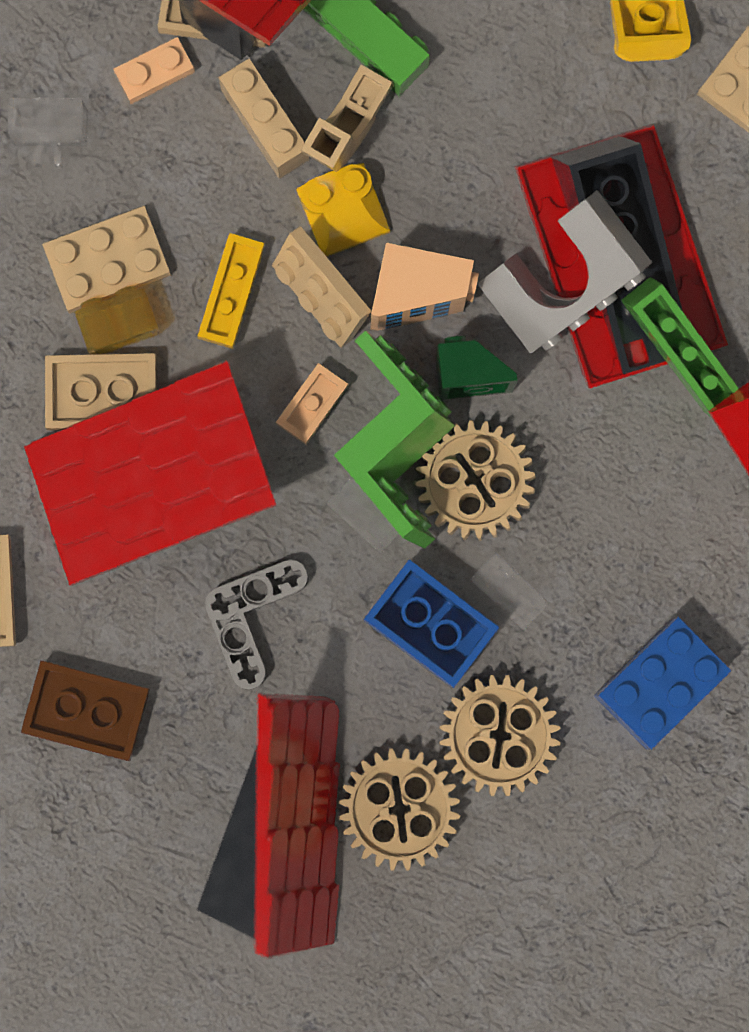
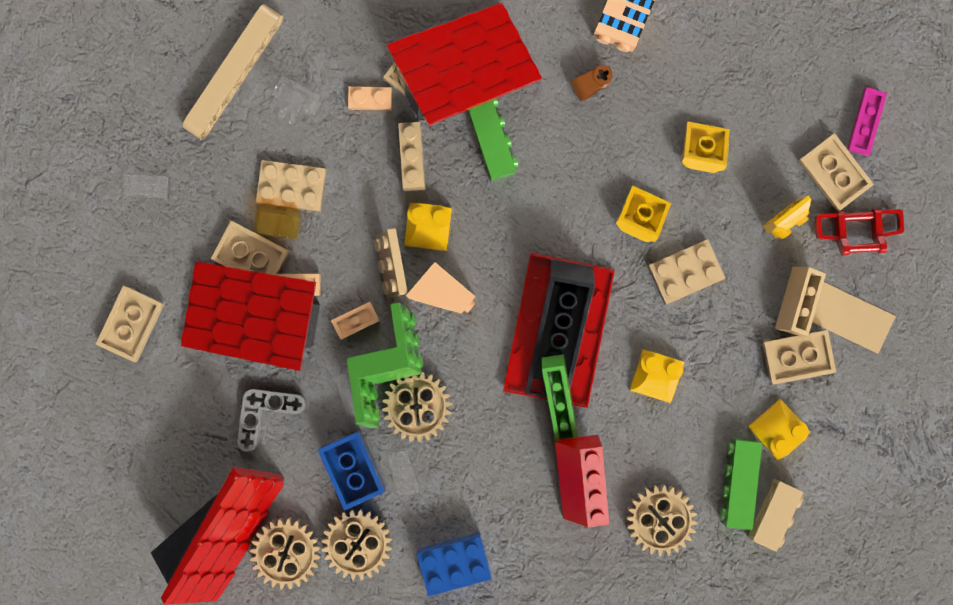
camera: 25 degrees right, 5 degrees up
(85, 711) = (153, 415): reddish brown plate -> none
(231, 290) = (345, 238): yellow plate -> none
(340, 135) = (453, 184): tan arch -> none
(471, 370) = (443, 349): dark green slope -> none
(611, 260) = (546, 331): light grey arch -> none

